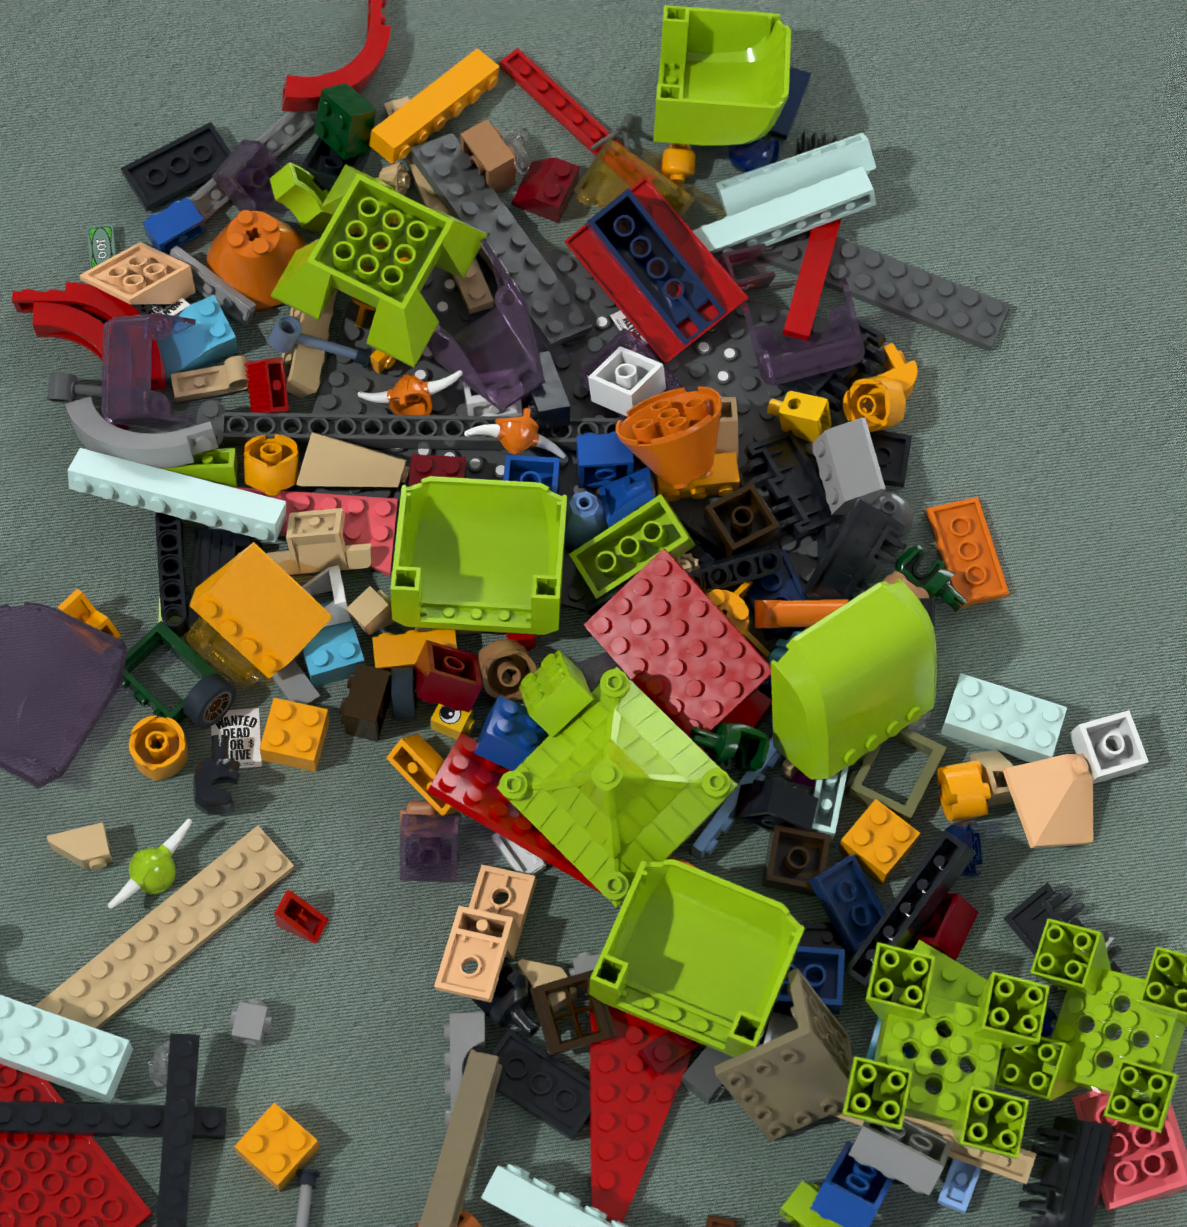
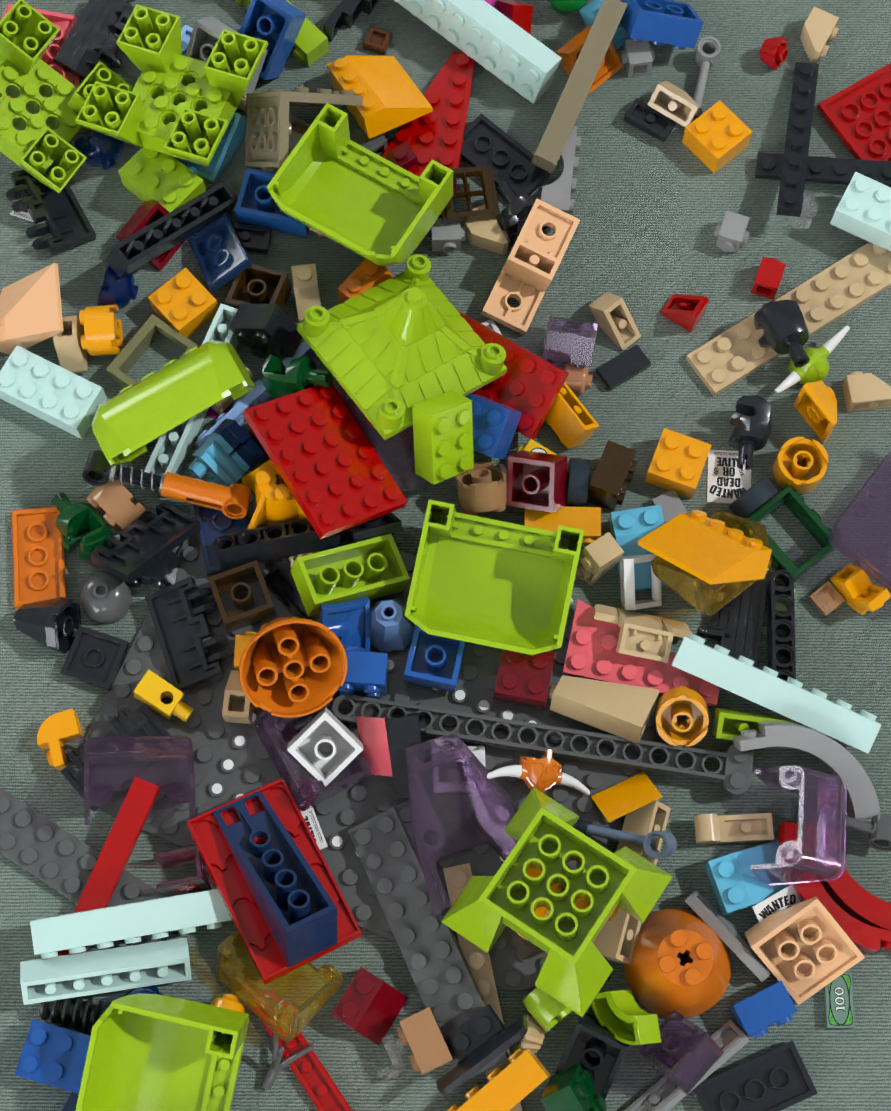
camera: 170 degrees left, 5 degrees up
(124, 617) = (826, 599): none -> medium nougat tile
(139, 817) = (818, 408): none -> light orange slope
(184, 890) = (783, 329): none -> black piece
(204, 972) = (768, 277): none -> red brick
(267, 386) = (680, 801): red brick -> none
(321, 386) = (626, 796): none -> light orange sticker
(334, 1181) = (673, 103): none -> tan slope
(362, 1163) = (649, 120): none -> black plate
(365, 844) = (623, 367): none -> black tile
(381, 894) = (615, 319): none -> tan slope
(434, 144) = (477, 1044): none -> black plate
(517, 434) = (443, 704): orange helmet -> none
(578, 394) = (375, 744): none -> coral sticker
(702, 1139) = (386, 89): none -> light orange slope
(742, 871) = (305, 288): none -> tan slope
(818, 107) = (54, 1056): none -> blue brick
(848, 466) = (129, 632): light grey slope -> none
(877, 400) = (87, 697): light orange brick -> none
(936, 478) = (50, 622): none -> black cone

